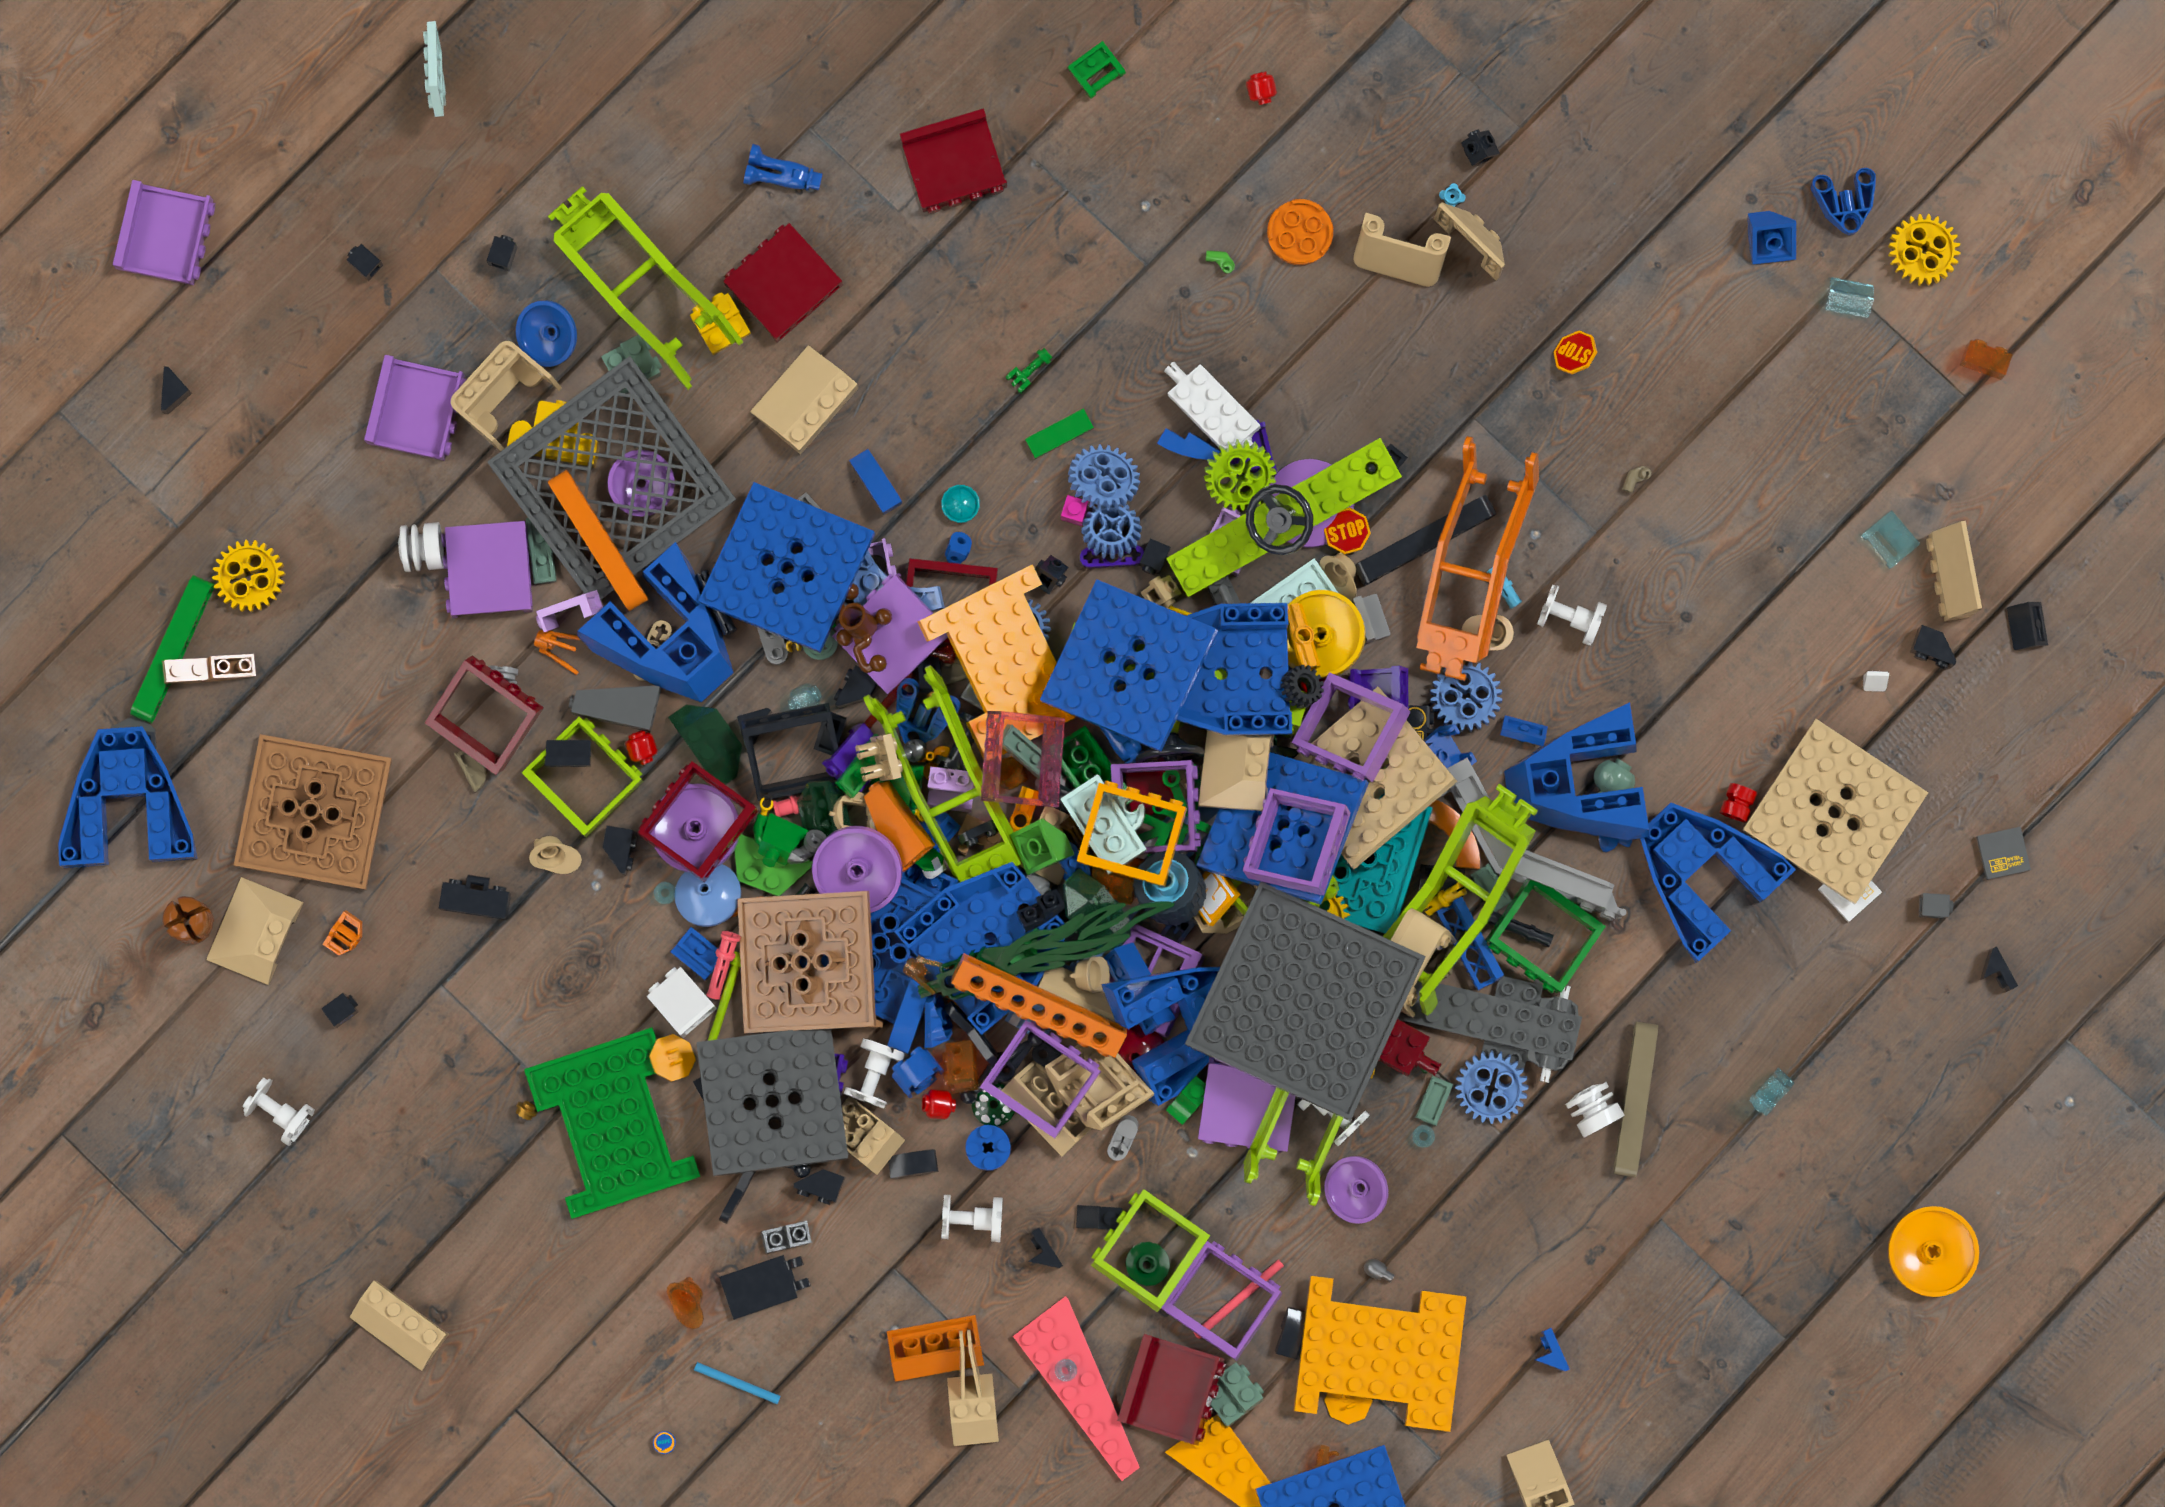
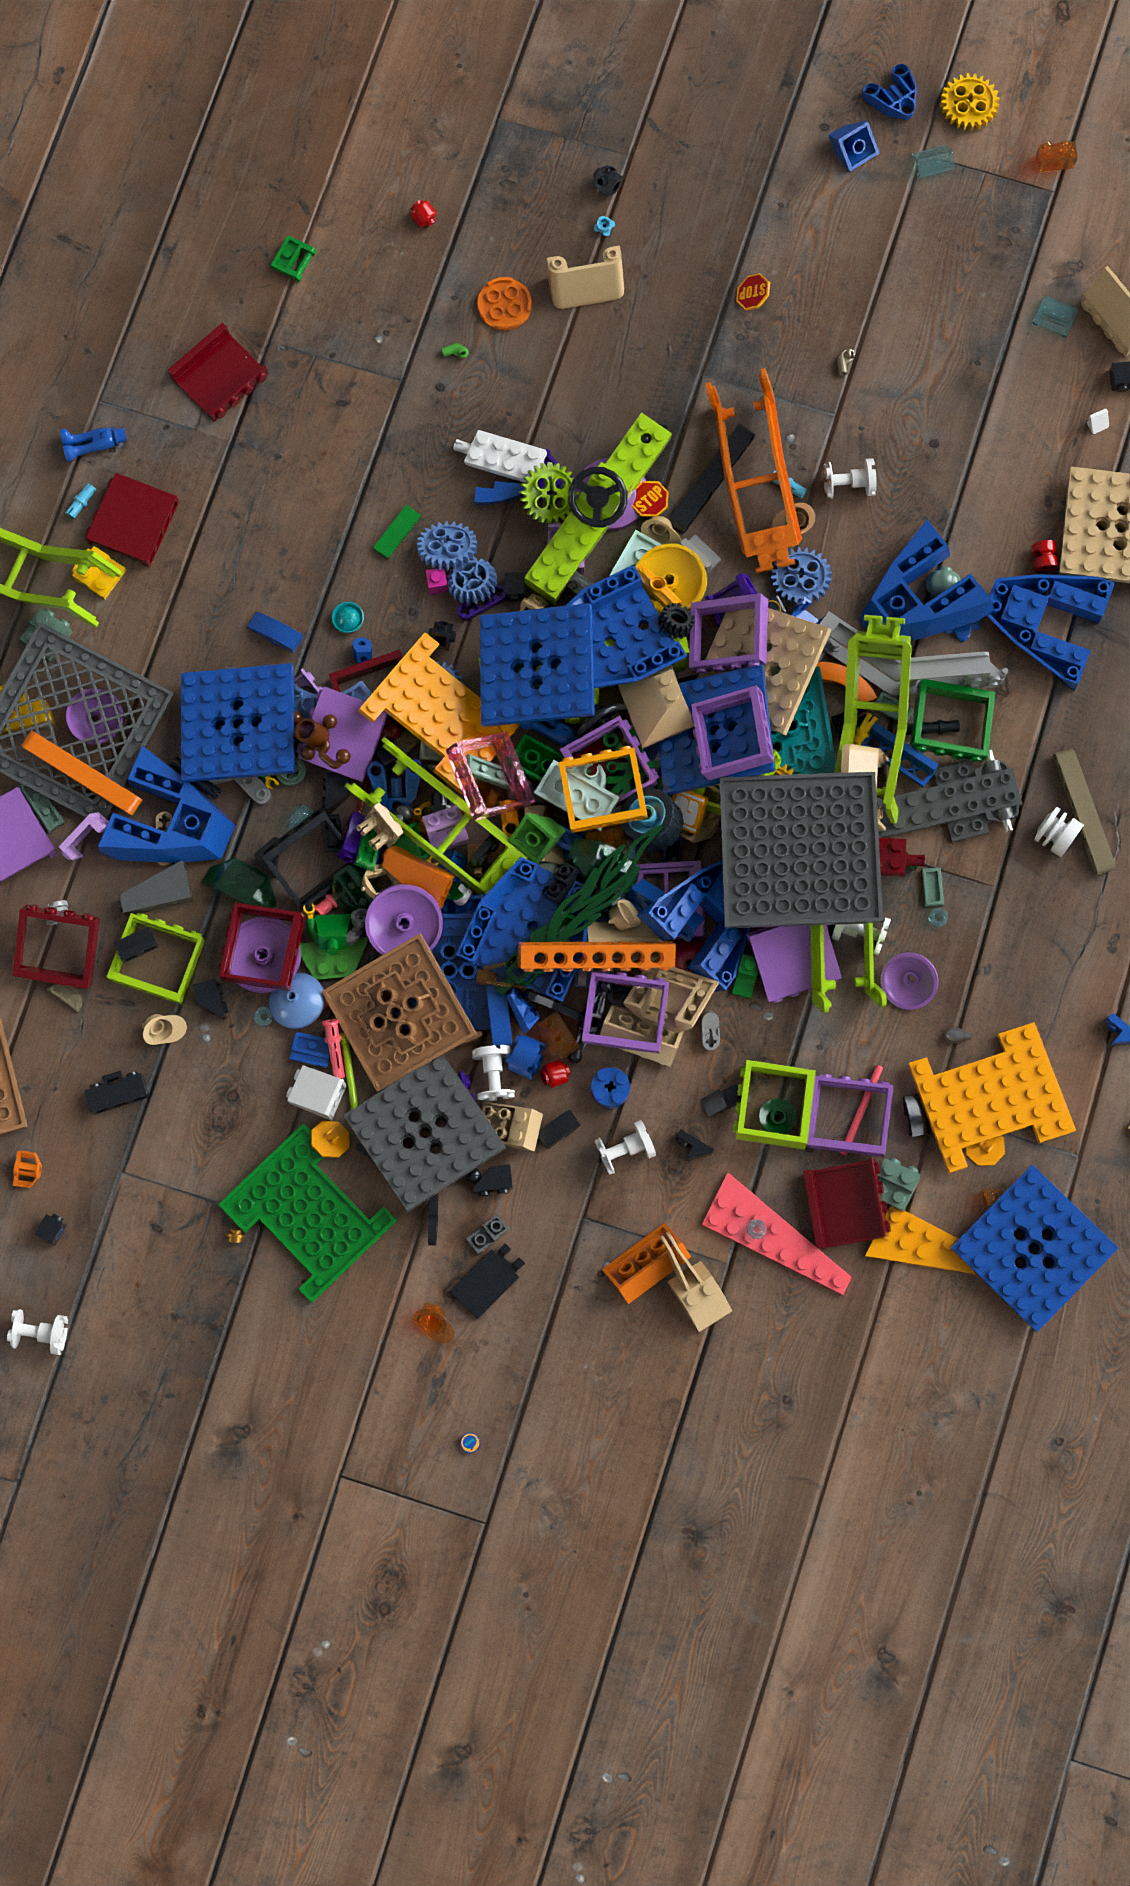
camera: 20 degrees left, 5 degrees down
(398, 1325) = (214, 1454): tan slope -> none
(547, 641) = (79, 869): orange plant -> none
(641, 747) = (191, 914): red head -> none
(735, 1382) = (504, 1367): dark azure bar -> none
(738, 233) = (80, 501): none -> medium azure pin
(805, 399) = (191, 597): tan slope -> none
(988, 1115) = (593, 1063): dark green dish -> none
(1022, 375) = (348, 503): green hinge -> none
(1472, 1081) = (988, 850): medium blue gear -> none
(1473, 230) = (613, 235): tan slope -> none
(1523, 730) = (857, 581): blue plate -> none

